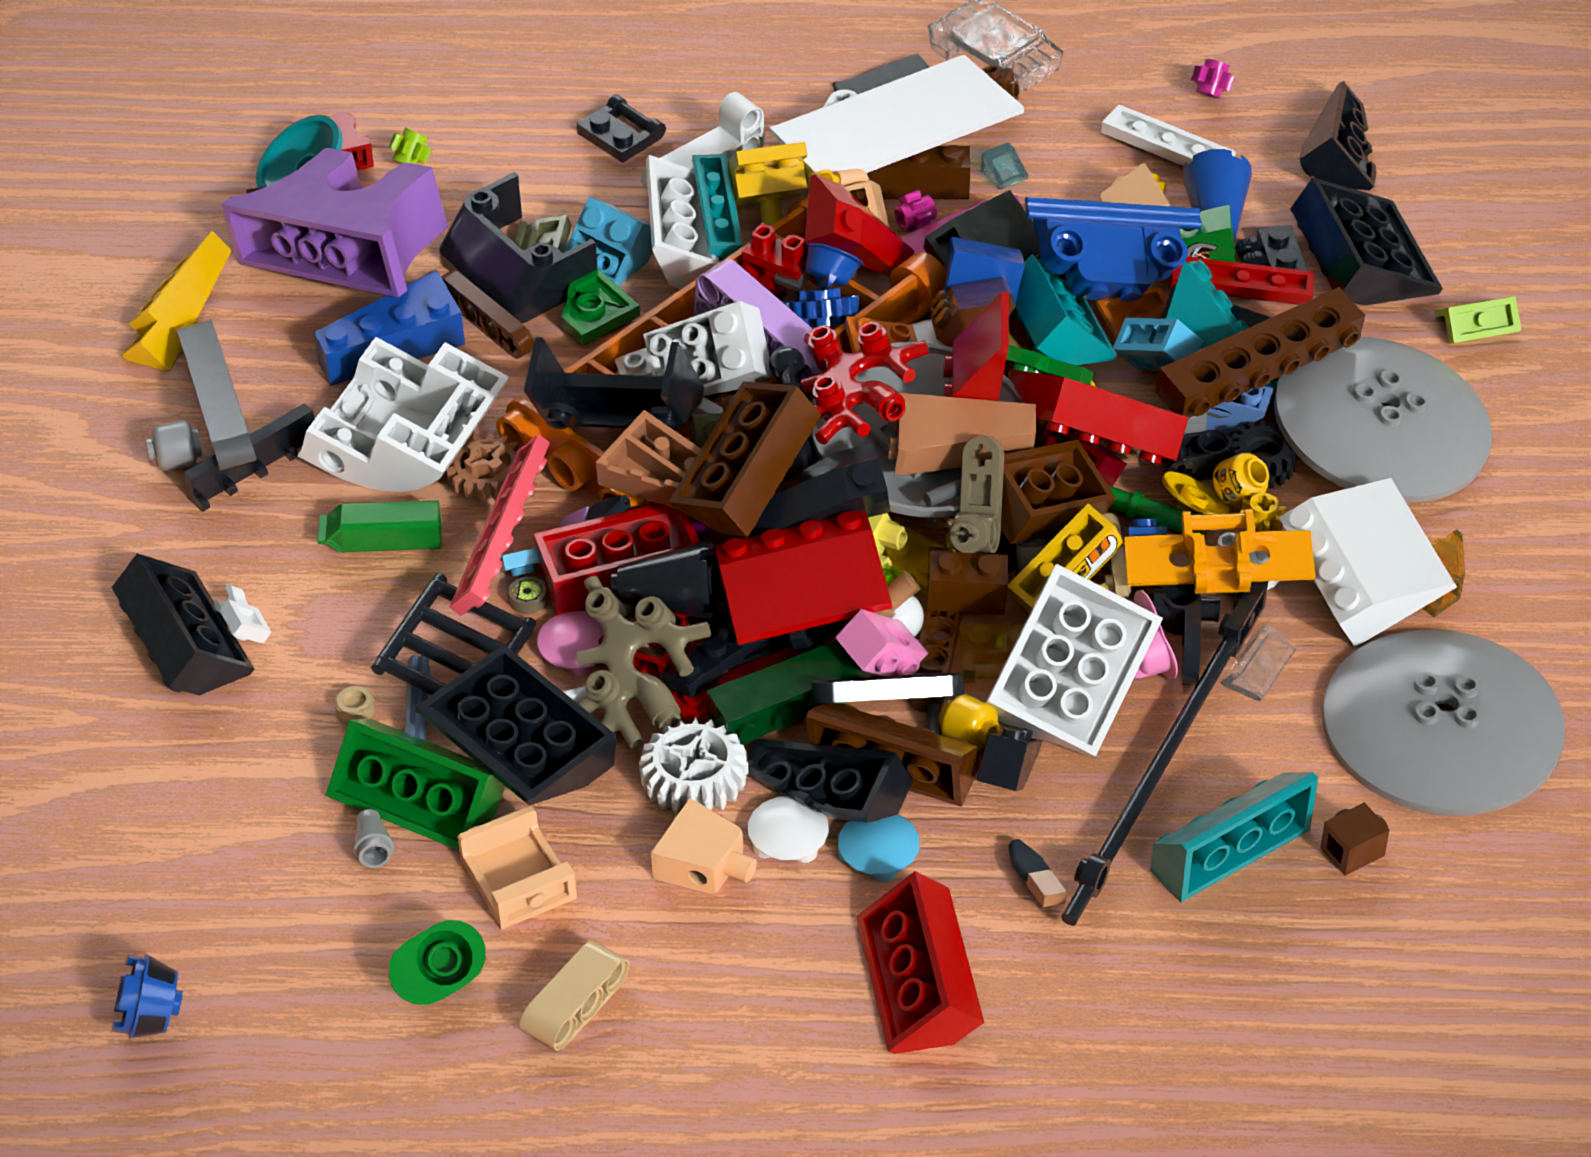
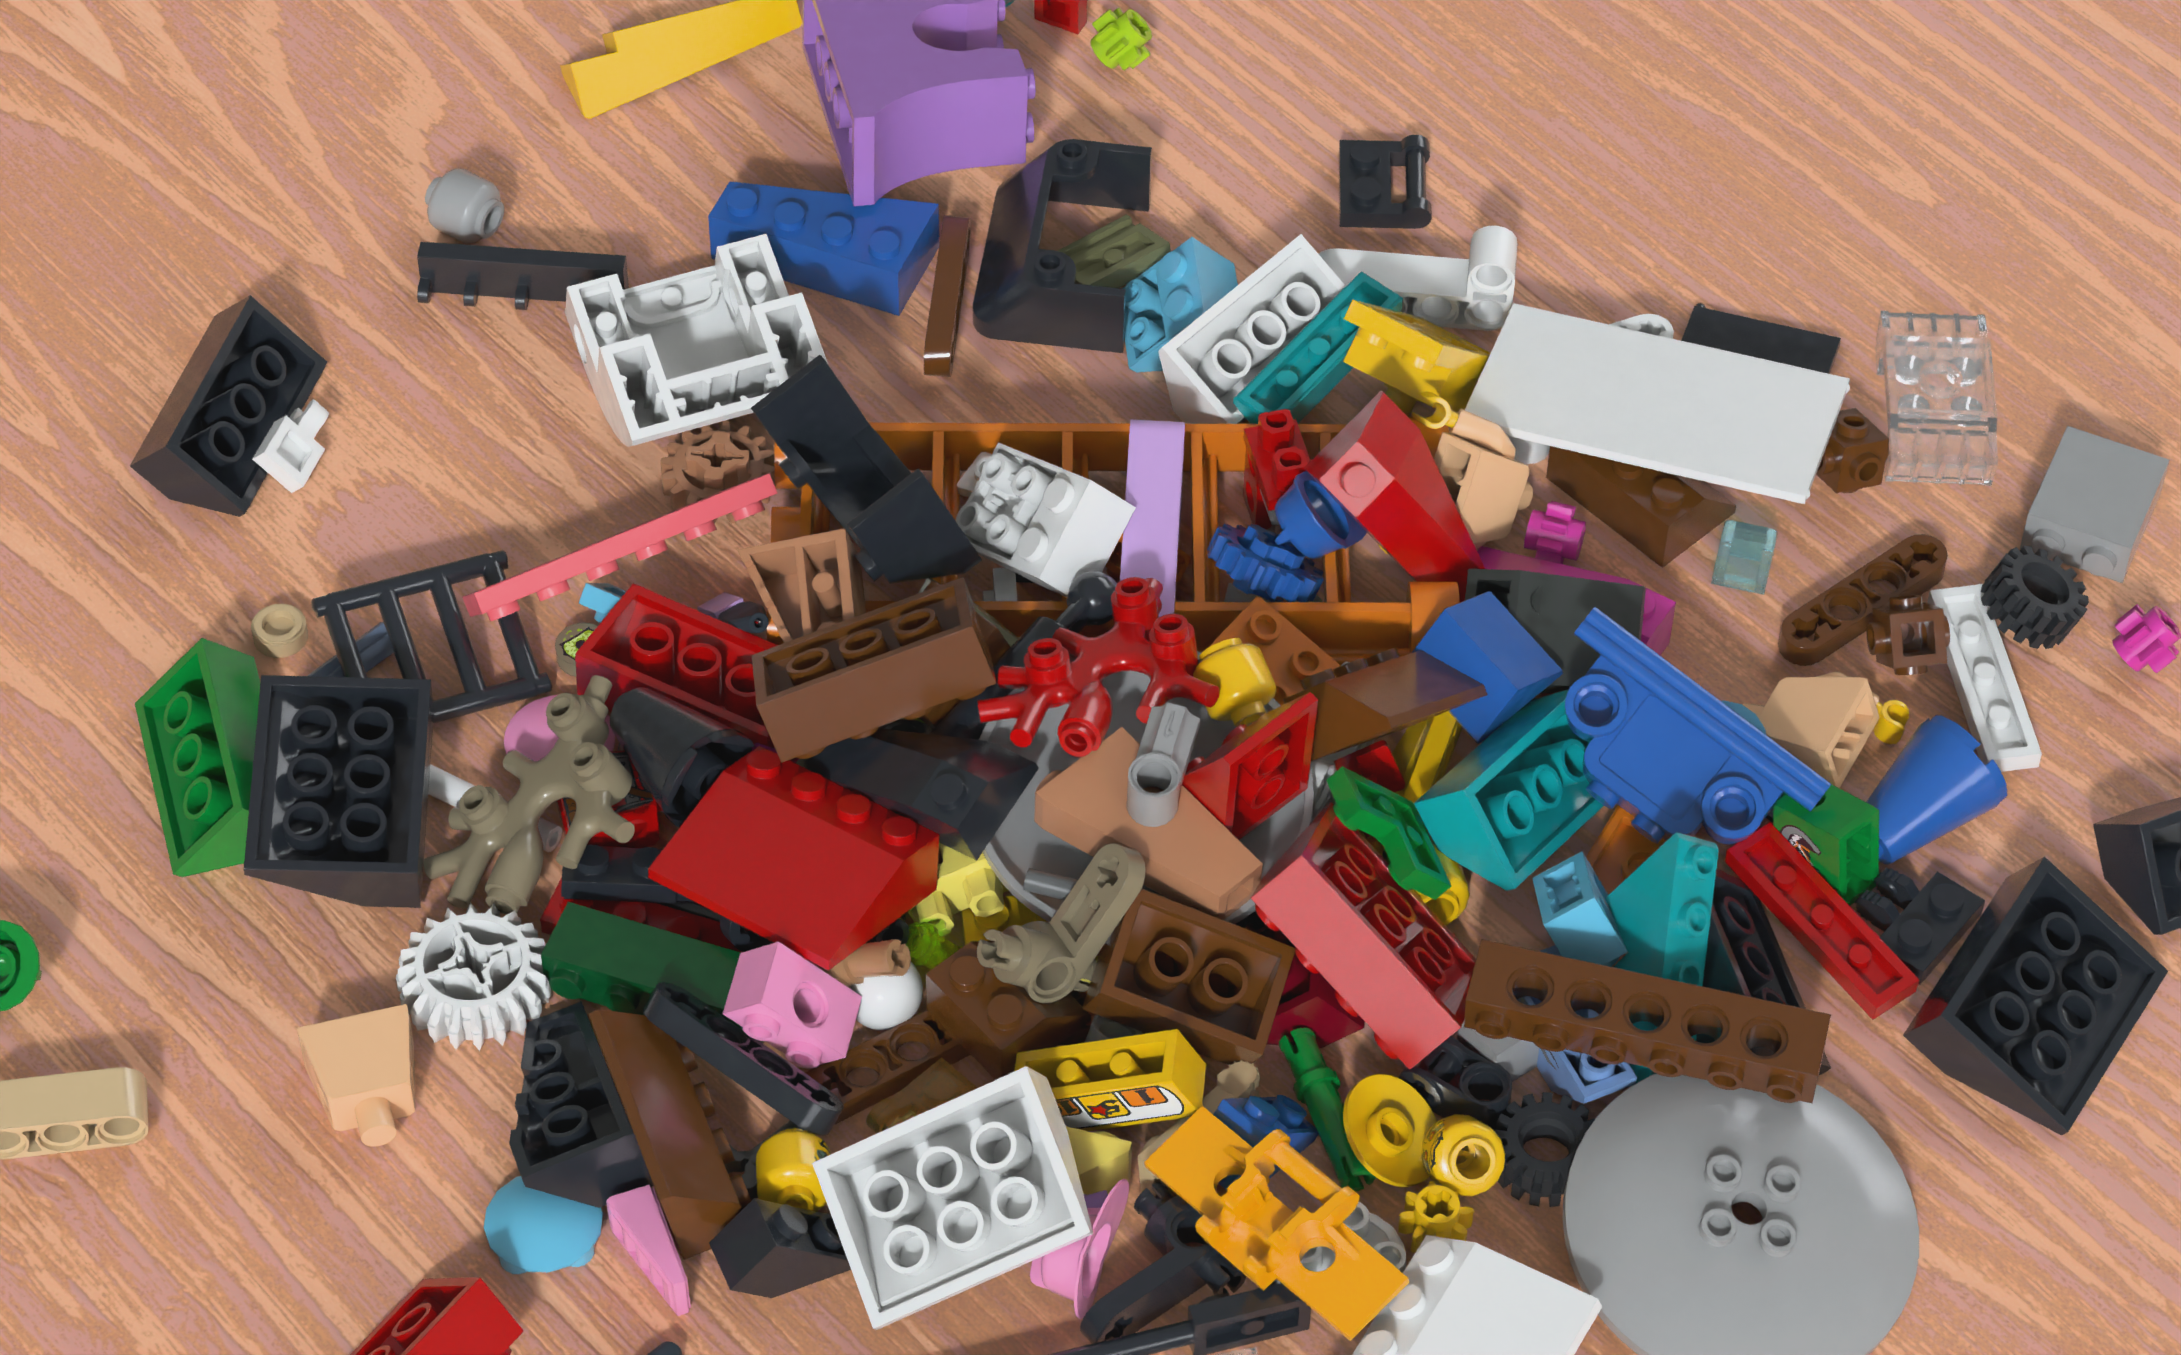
camera: 45 degrees right, 5 degrees up
(216, 395) = (555, 179): beam -> none
(372, 841) = (102, 787): light grey cone -> none
(382, 526) = (541, 459): green piece -> none
(515, 867) = (187, 934): light nougat panel -> none
(596, 307) = (1068, 378): green plate -> none
(787, 830) = (472, 1125): white dish -> none
(914, 330) = (1241, 678): none -> yellow head
(950, 807) = (643, 1232): none -> bright pink slope
(951, 392) = (1161, 764): none -> light grey piece
(1074, 148) = (1857, 594): none -> reddish brown beam
(1116, 43) = (2095, 503): none -> light grey brick
(1122, 143) = (1925, 640): none -> reddish brown brick
(1148, 93) = (2034, 597): none -> black tyre
(1481, 319) = (2049, 1205): lime panel -> none

